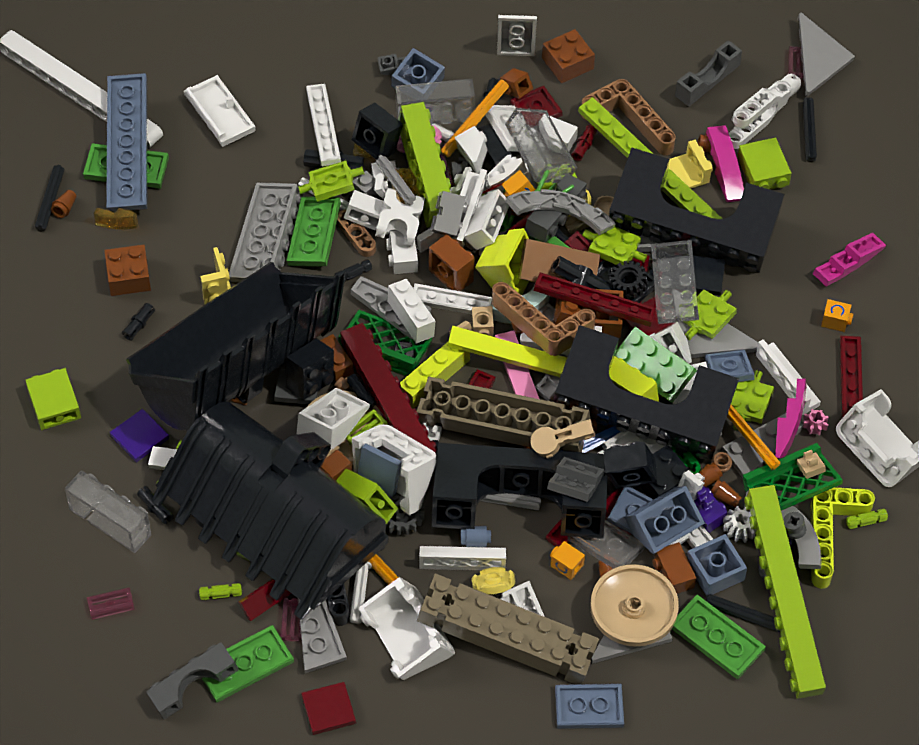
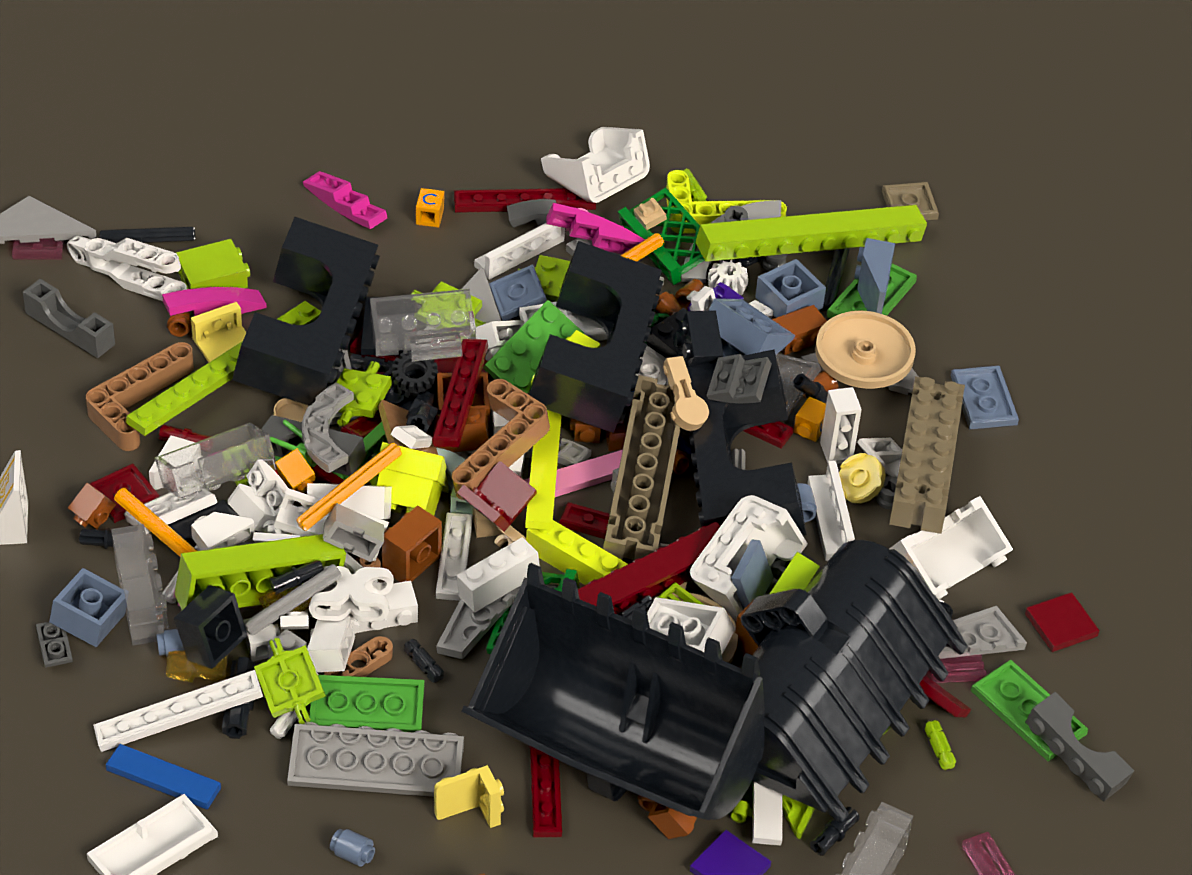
camera: 100 degrees left, 10 degrees down
(196, 215) = (352, 847): none -> sand blue brick
(276, 120) = (163, 776): none -> blue tile
(412, 179) = (295, 576): none -> black axle
(477, 310) = (500, 496): none -> bracket
(482, 206) = (349, 486): none -> light orange axle
(535, 253) = (412, 436): none -> white tile
(540, 563) = (840, 424): none -> white brick
(568, 56) = (44, 457): dark orange brick -> none
(591, 561) = (810, 388): none -> black pin
(643, 285) = (435, 346): none -> clear panel
(712, 623) = (874, 273): none -> sand blue slope
(830, 389) = (530, 210): none -> dark grey slope
(847, 697) = (912, 194): none -> dark tan tile

